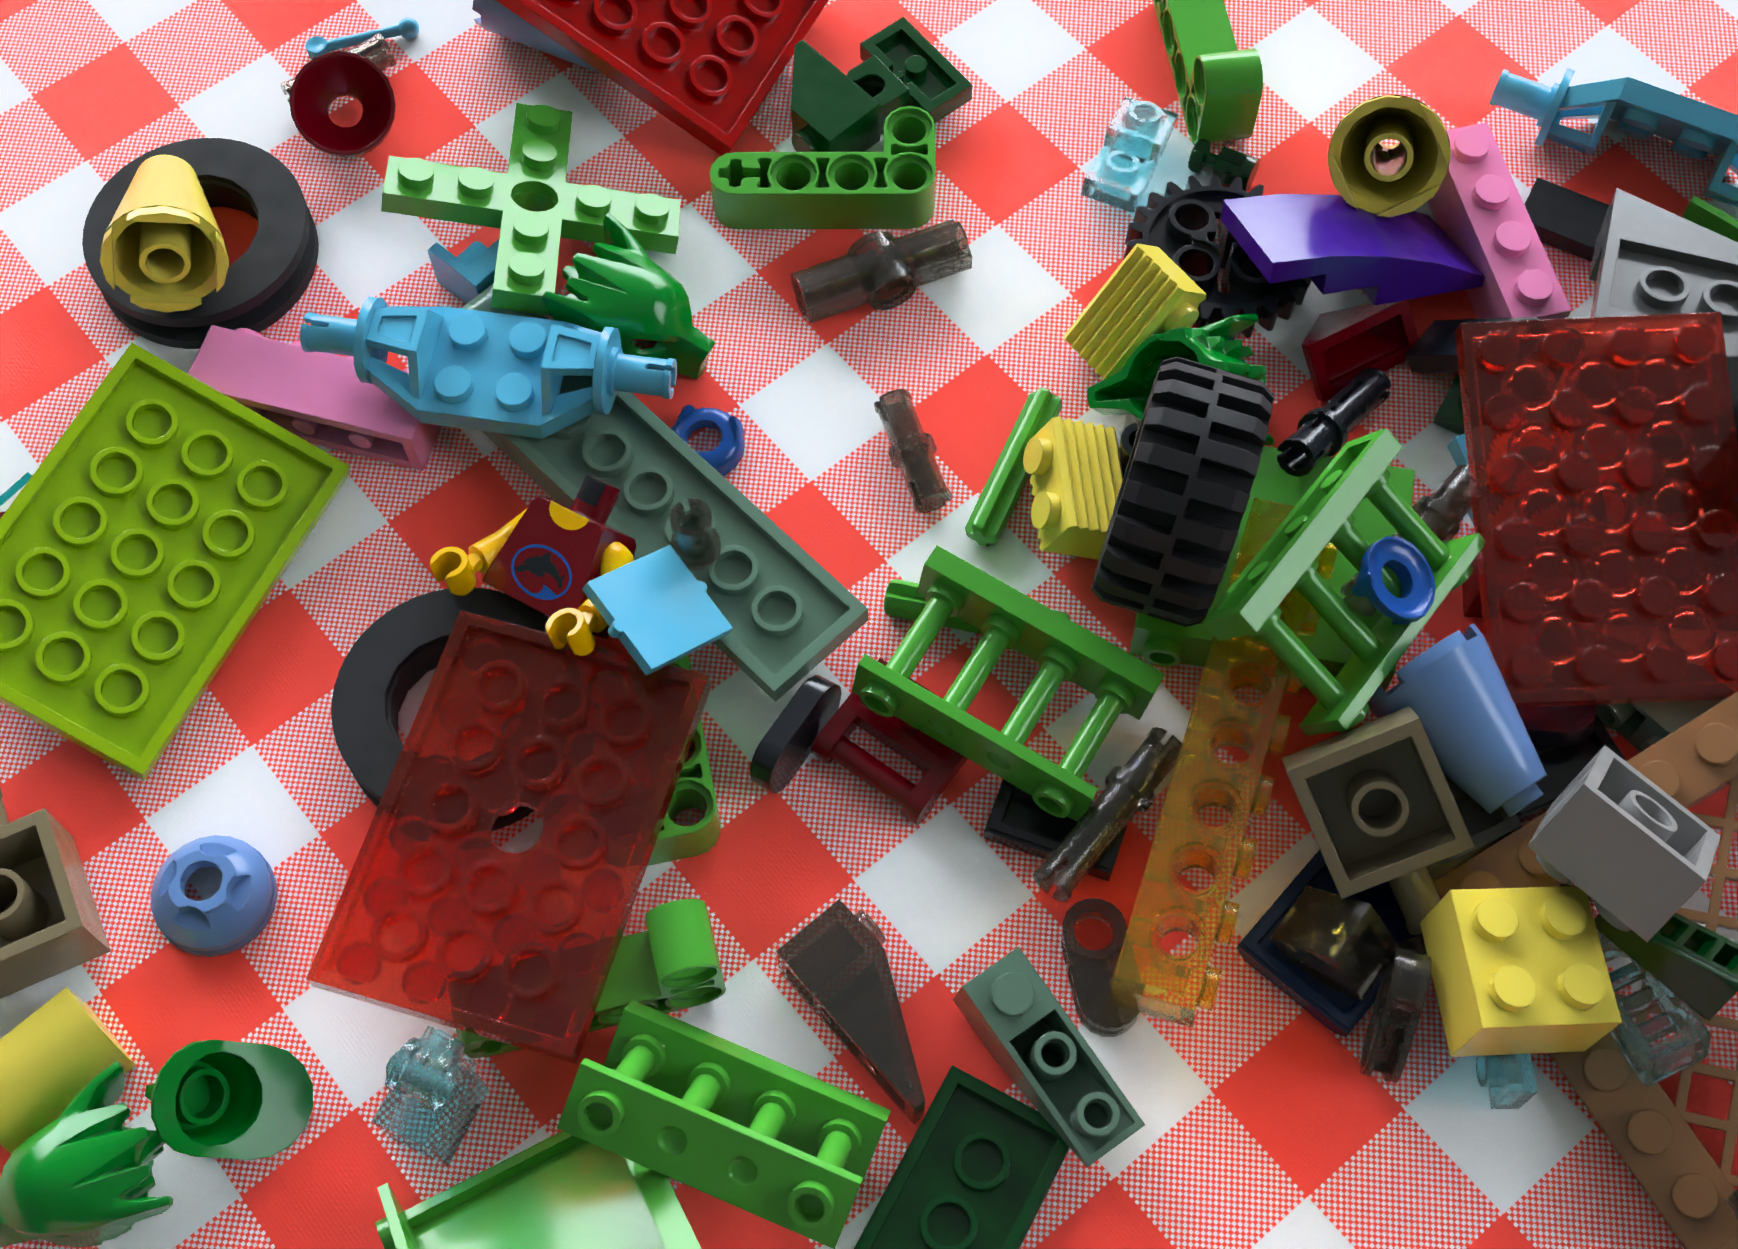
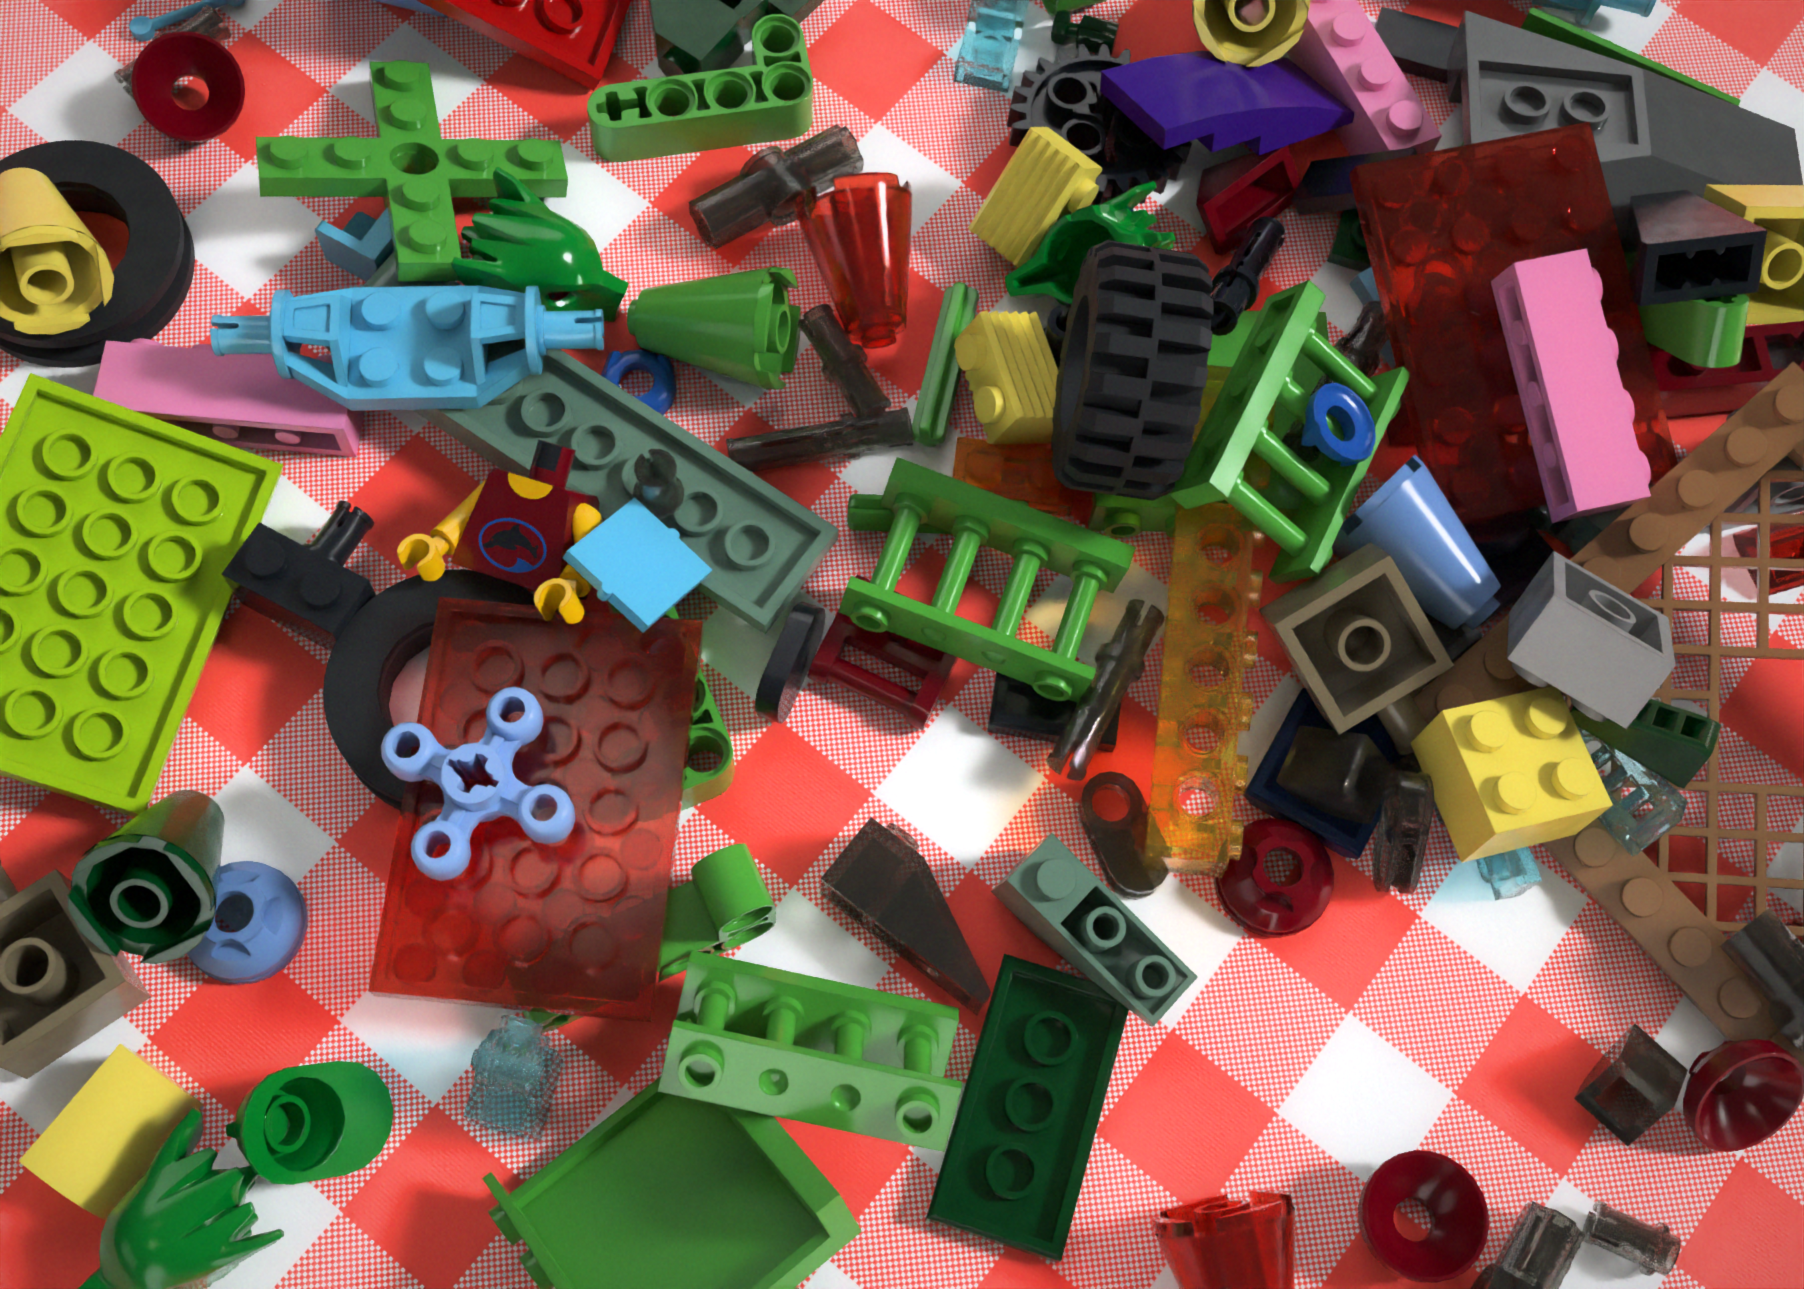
camera: 20 degrees left, 5 degrees up
(127, 833) = (152, 880): none -> dark green cone
(342, 579) = (305, 582): none -> black brick
(449, 813) = (474, 761): none -> light blue gear
(801, 395) = (723, 324): none -> bright green cone
(874, 523) = (823, 441): none -> clear smoke pin
(951, 343) = (862, 251): none -> clear red cone
(1060, 584) = (1013, 473): none -> clear orange plate
(1245, 1071) = (1263, 905): none -> dark red piece
(1654, 578) = (1571, 385): none -> bright pink brick

